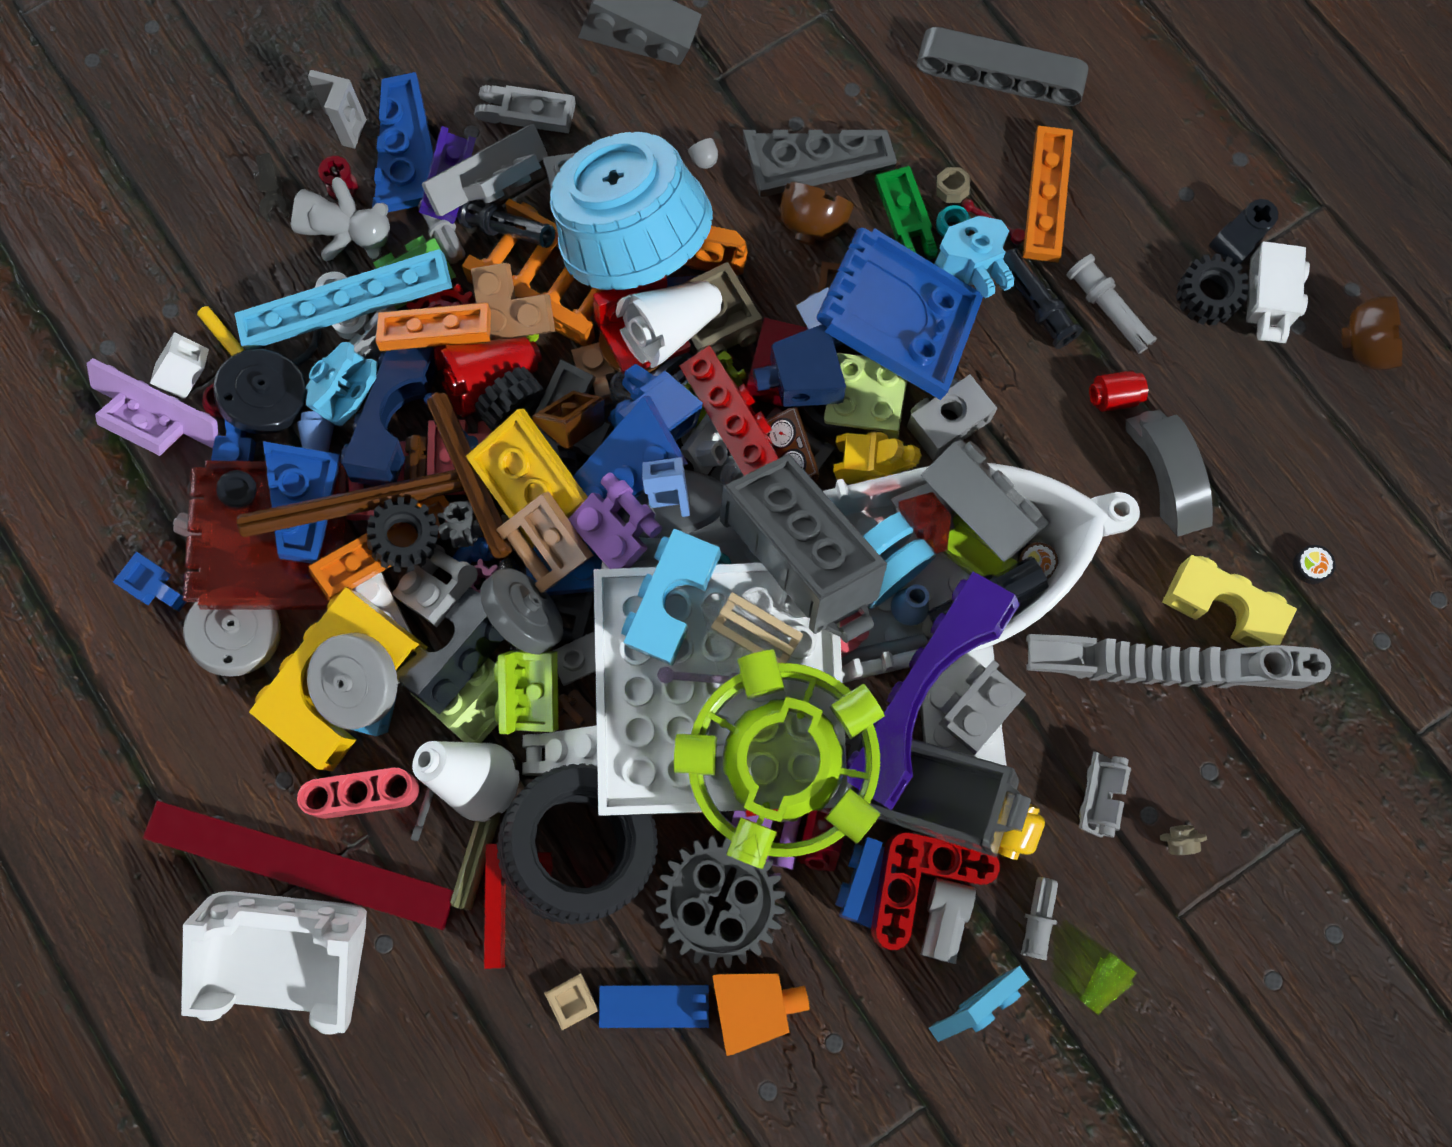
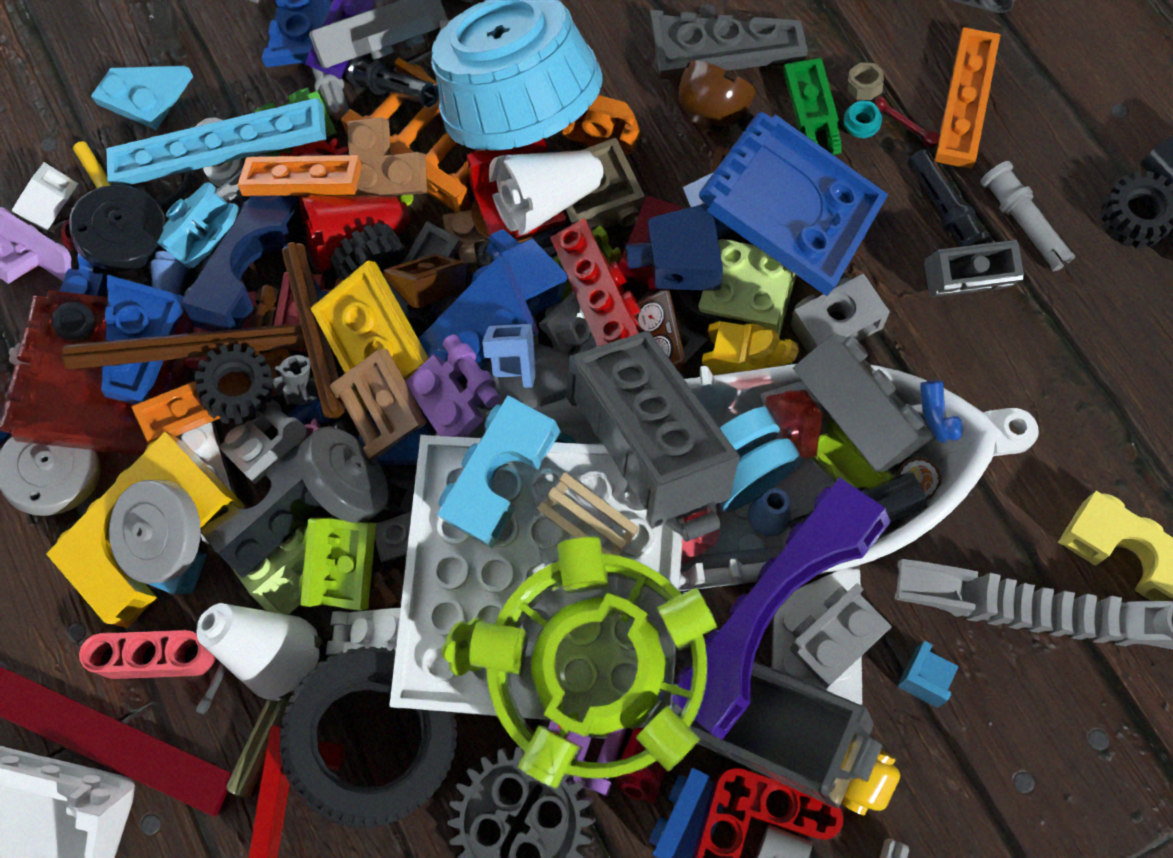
camera: 15 degrees right, 5 degrees down
(255, 251) = (142, 92): none -> medium azure wing
(318, 216) = (205, 61): light grey piece -> none
(343, 171) = (224, 26): dark red bush -> none
(660, 756) = (457, 647): none -> lime plant
(667, 675) = (484, 558): hinge -> none
(704, 153) = (607, 30): light grey hinge -> none
(978, 255) = (884, 153): medium azure hinge -> none
(1048, 502) = (935, 414): none -> blue arm
(1060, 733) = (928, 676): none -> dark azure panel
(1068, 360) = (973, 268): none -> dark grey brick
(1098, 812) = (964, 771): light grey hinge -> none
(1118, 390) = (1027, 307): red brick -> none
(1178, 469) = (1088, 397): dark grey arch -> none
(1183, 840) = (1061, 816): dark tan plate -> none

